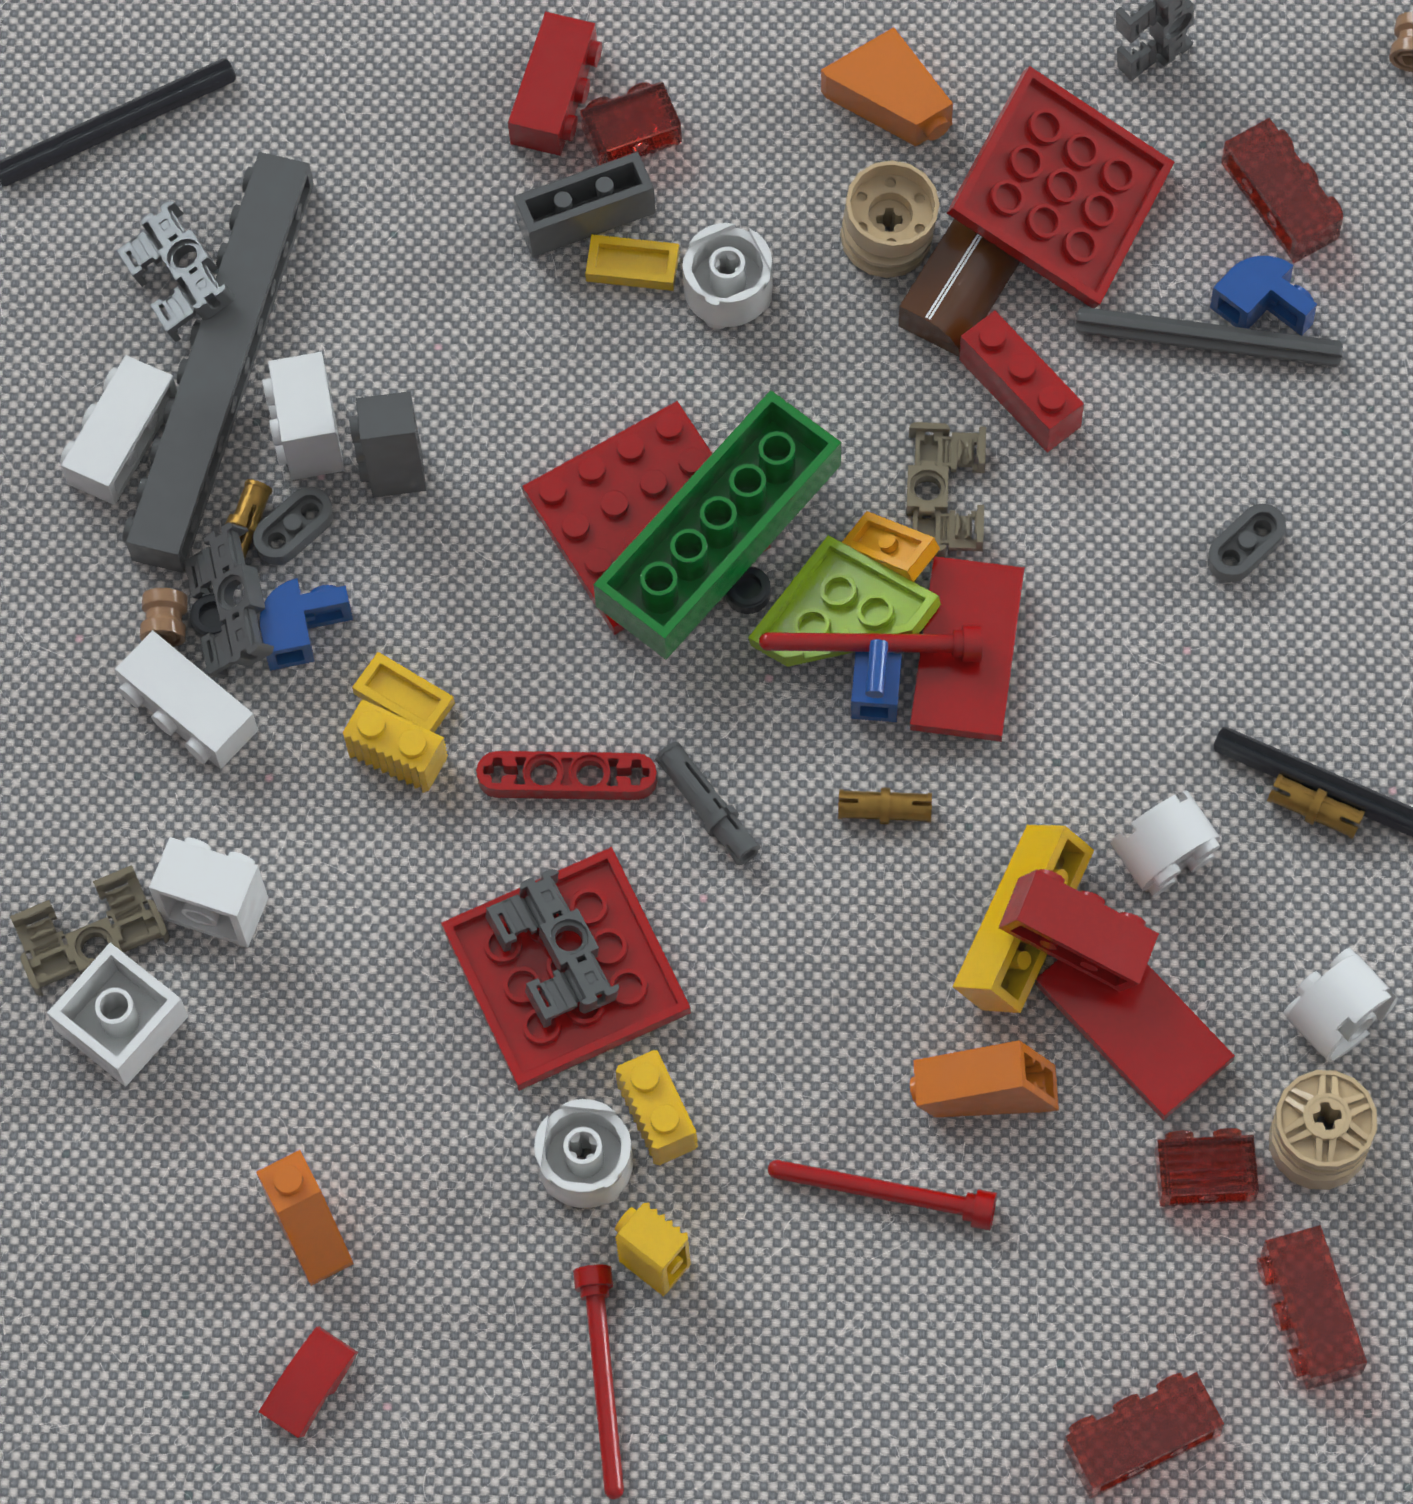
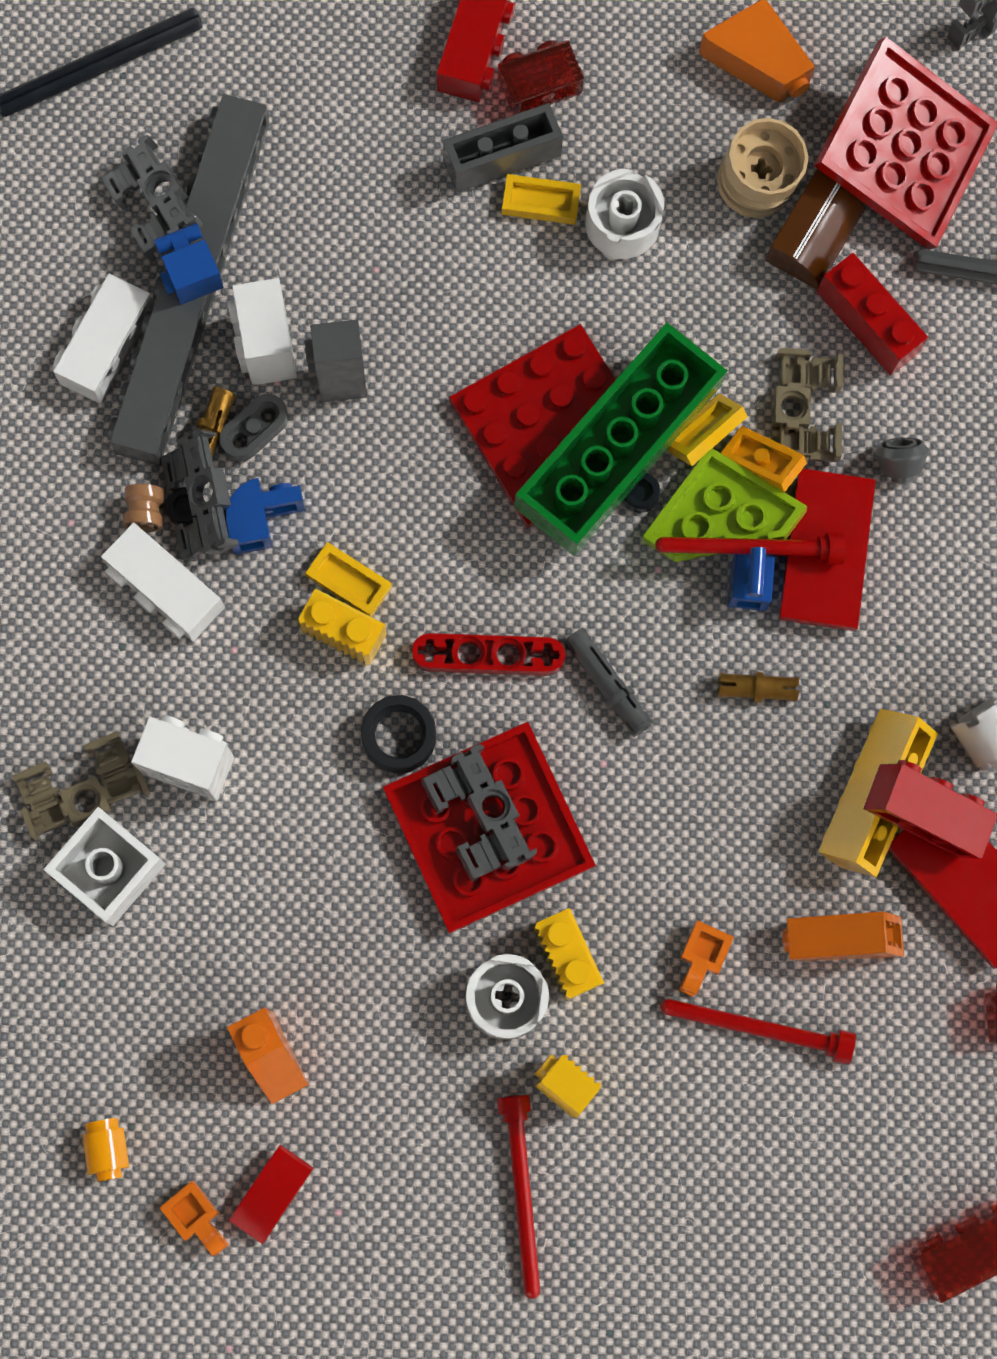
camera: 10 degrees left, 10 degrees up
(115, 1332) = (105, 1149): none -> light orange brick
(217, 1405) = (191, 1215): none -> orange plate
(218, 345) = (189, 268): none -> blue brick
(452, 832) = (396, 704): none -> black tyre
(818, 1105) = (704, 952): none -> orange plate
(824, 515) = (707, 429): none -> yellow tile
(1056, 544) = (901, 458): none -> dark grey cone

